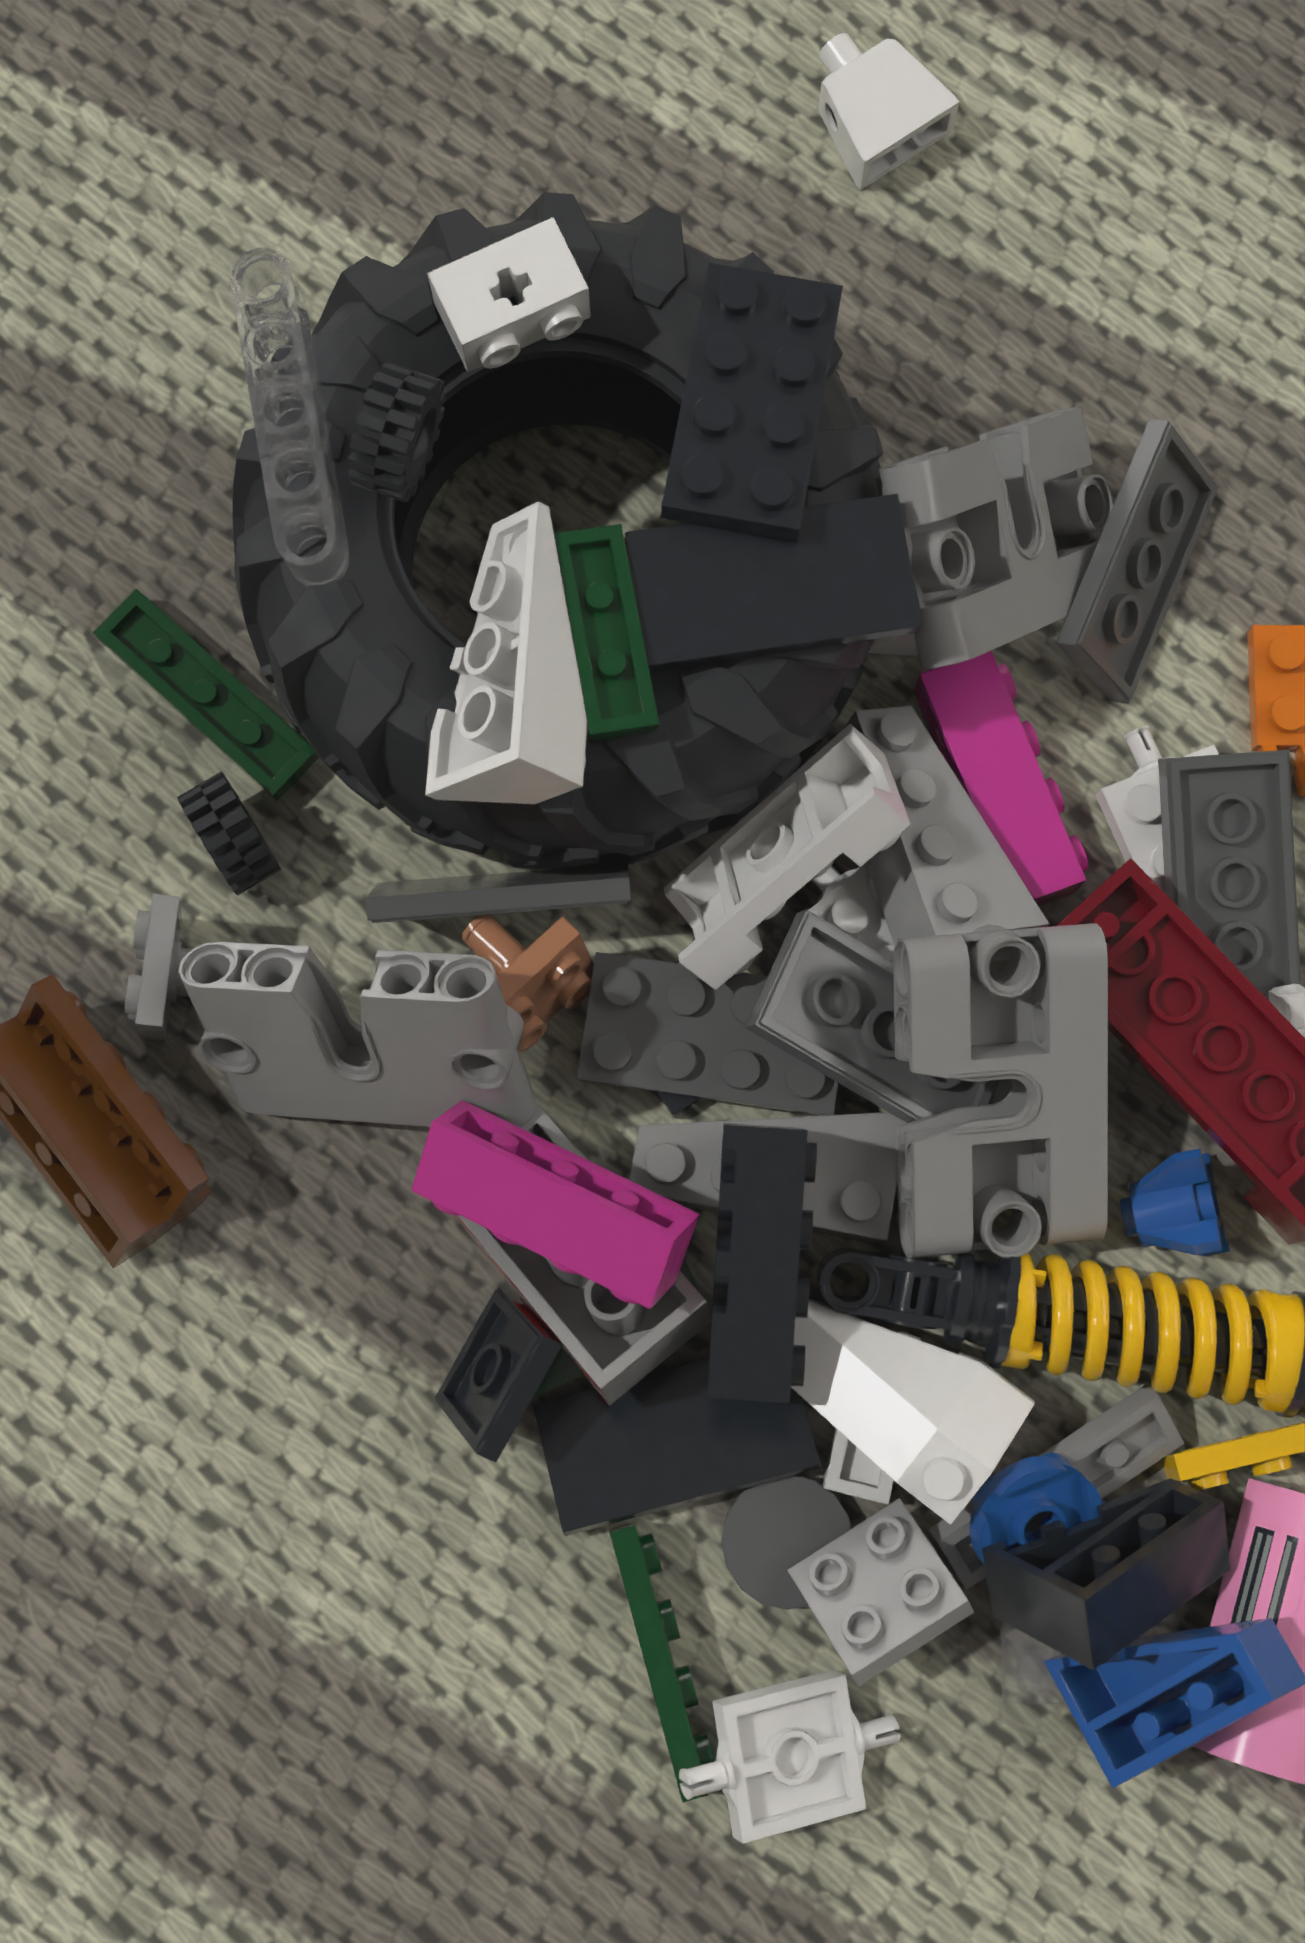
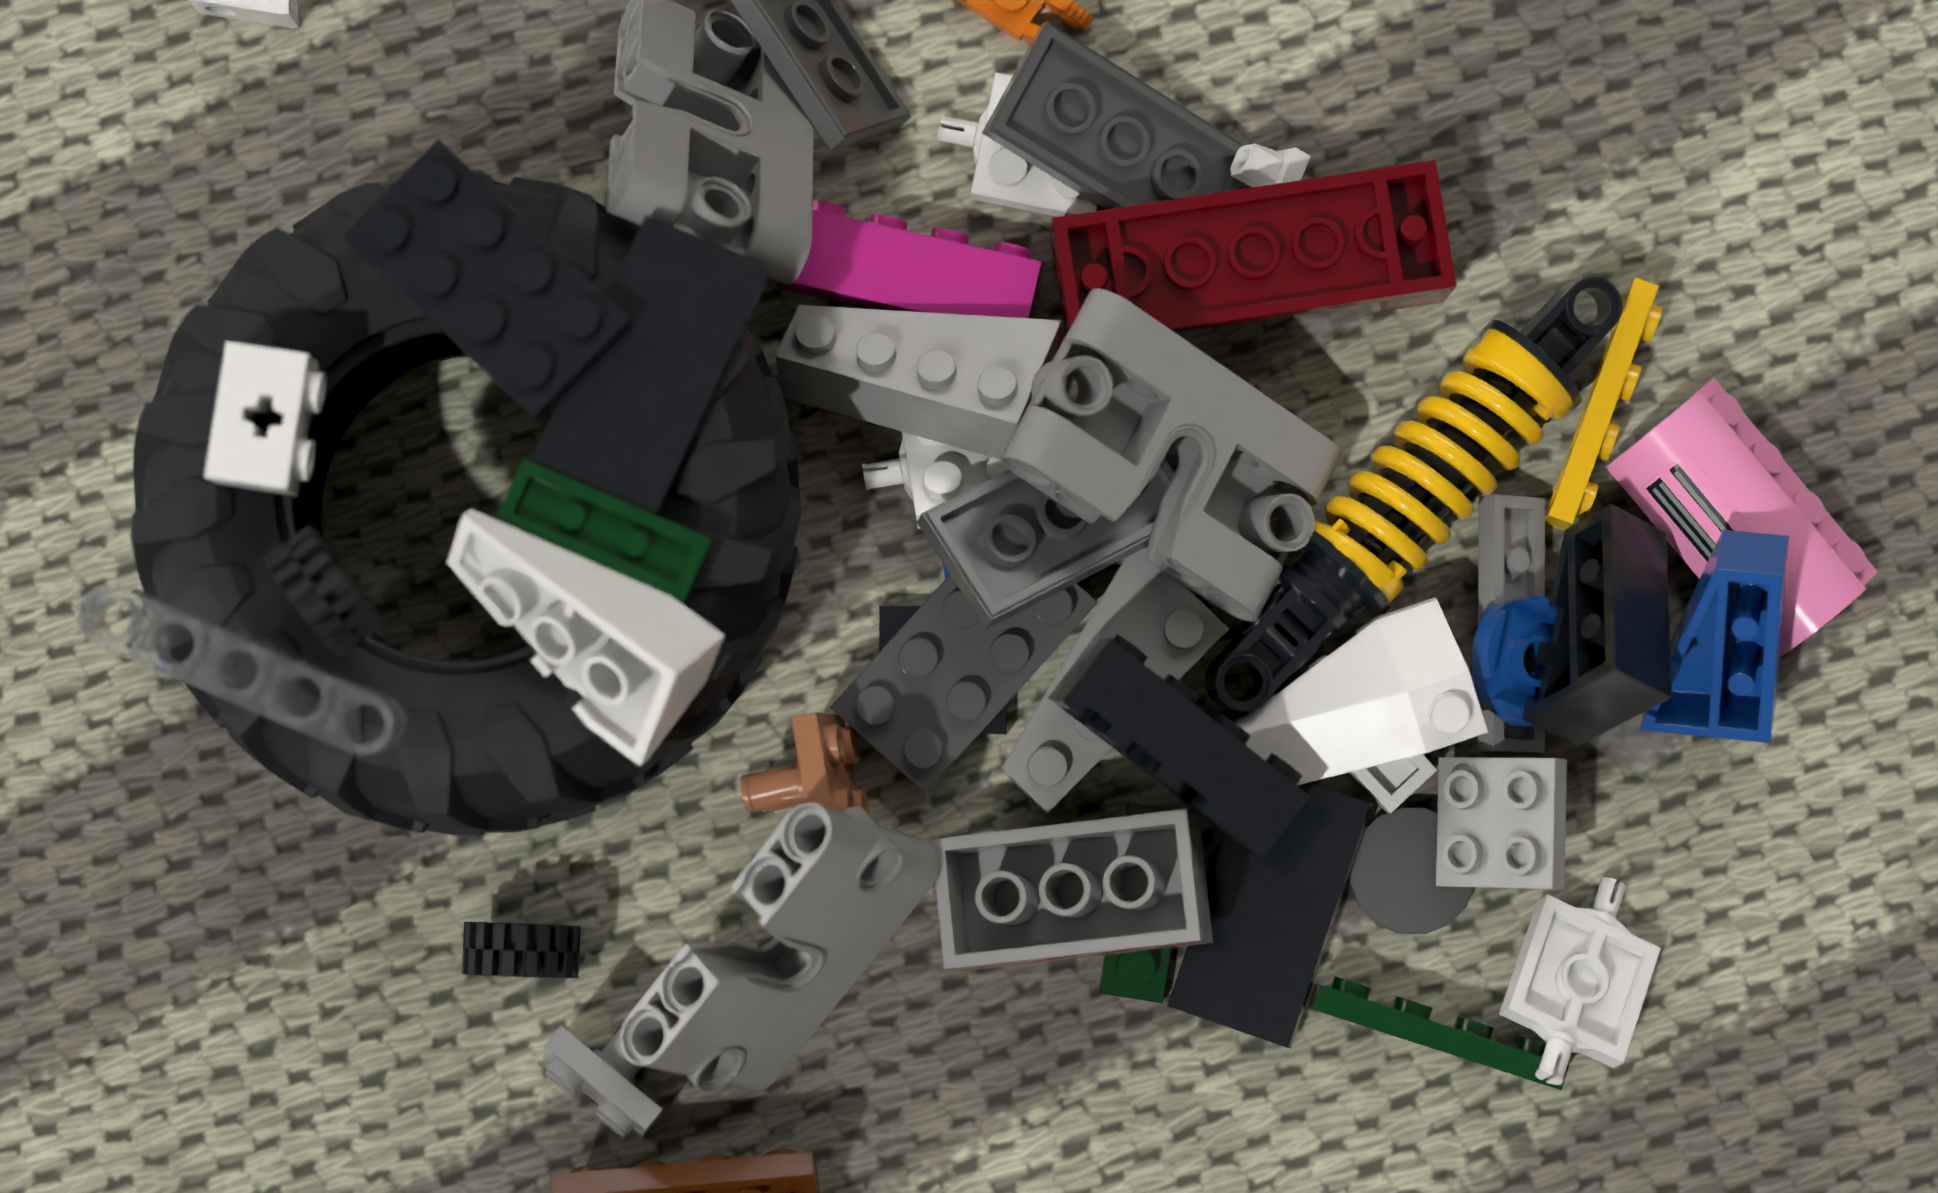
camera: 60 degrees left, 5 degrees up
(206, 694) = (377, 893): dark green plate -> none
(497, 1373) = (1126, 1017): black tile -> none
(498, 893) = (726, 759): dark grey tile -> none
(554, 1203) = (1027, 879): dark pink brick -> none
(828, 807) = (850, 447): white piece -> none
(1177, 1207) = (1356, 373): blue brick -> none

